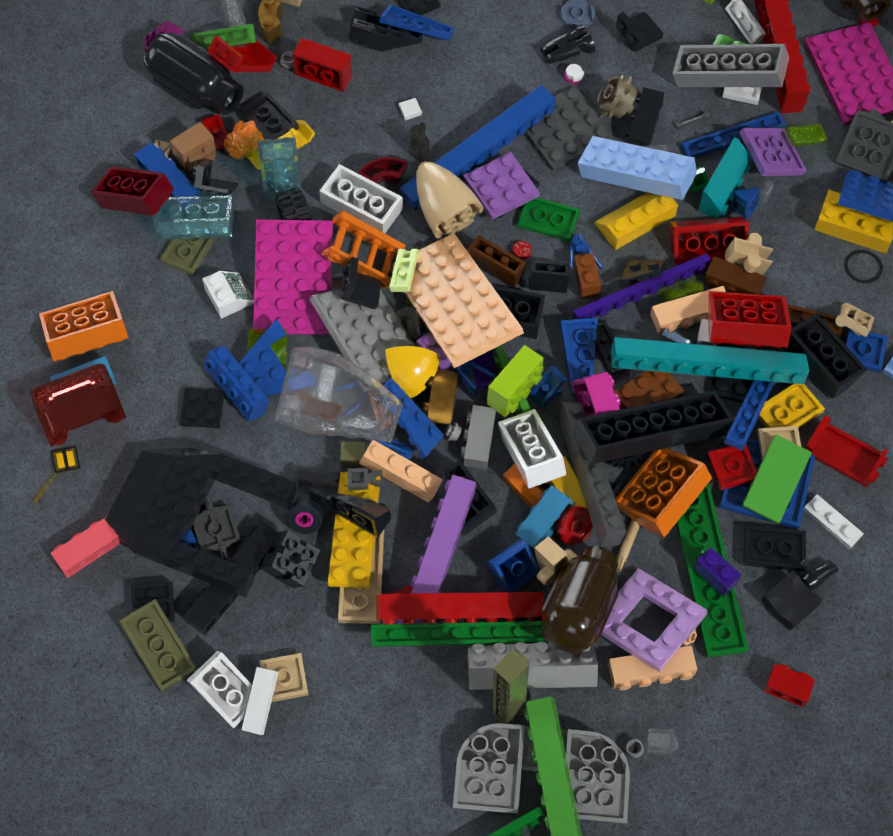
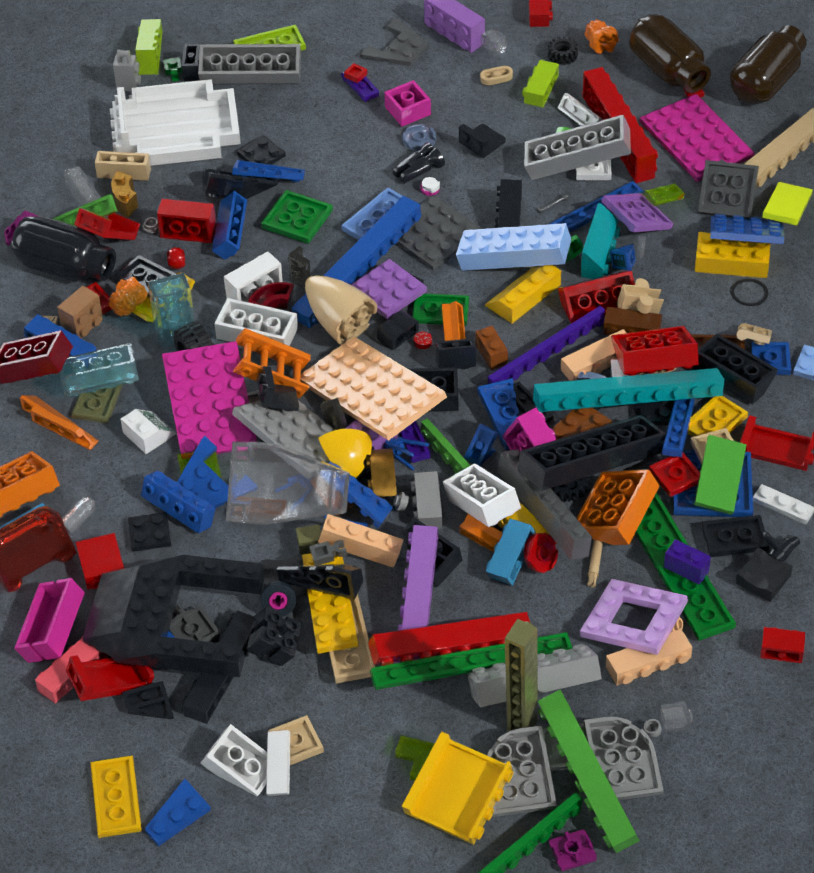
camera: 10 degrees left, 15 degrees down
(63, 461) = (21, 605): piece -> none
(79, 490) = (49, 620): none -> dark pink piece
(98, 696) = (115, 796): none -> yellow tile
(118, 567) = (106, 677): none -> red panel
(135, 376) = (78, 514): none -> clear brick
(142, 261) = (53, 420): none -> orange wedge
(145, 429) = (97, 557): none -> red panel
(152, 729) = (177, 813): none -> blue wing
(158, 645) = (163, 739): olive tile -> none
(203, 180) = (94, 330): black bracket -> none
(303, 104) = (176, 258): none -> red piece
(363, 78) = (229, 225): none -> blue brick
(369, 146) = (252, 276): none -> white brick
(404, 270) = (315, 373): yellowish green plate -> none
(404, 725) = (415, 751): none -> clear neon green plate
(410, 109) = (281, 244): white tile -> none
(425, 774) = (457, 789): none -> yellow panel
(433, 81) = (297, 216): none -> green plate
(497, 261) = (403, 350): reddish brown brick -> none
(502, 231) = (397, 329): none -> black brick
(509, 93) = (370, 214): none -> medium blue plate
(513, 566) = (492, 597): blue brick -> none
(515, 381) = (450, 440): lime brick -> none
(550, 559) = (528, 583): tan piece -> none
(556, 240) = (453, 321): none -> orange piece
(580, 245) = (476, 323): blue plant -> none
(580, 601) = (565, 607): dark brown piece -> none
(617, 97) = (478, 194): dark tan brick -> none
(642, 271) = (543, 332): black wing -> none
(689, 287) = (590, 338): clear neon green plate -> none

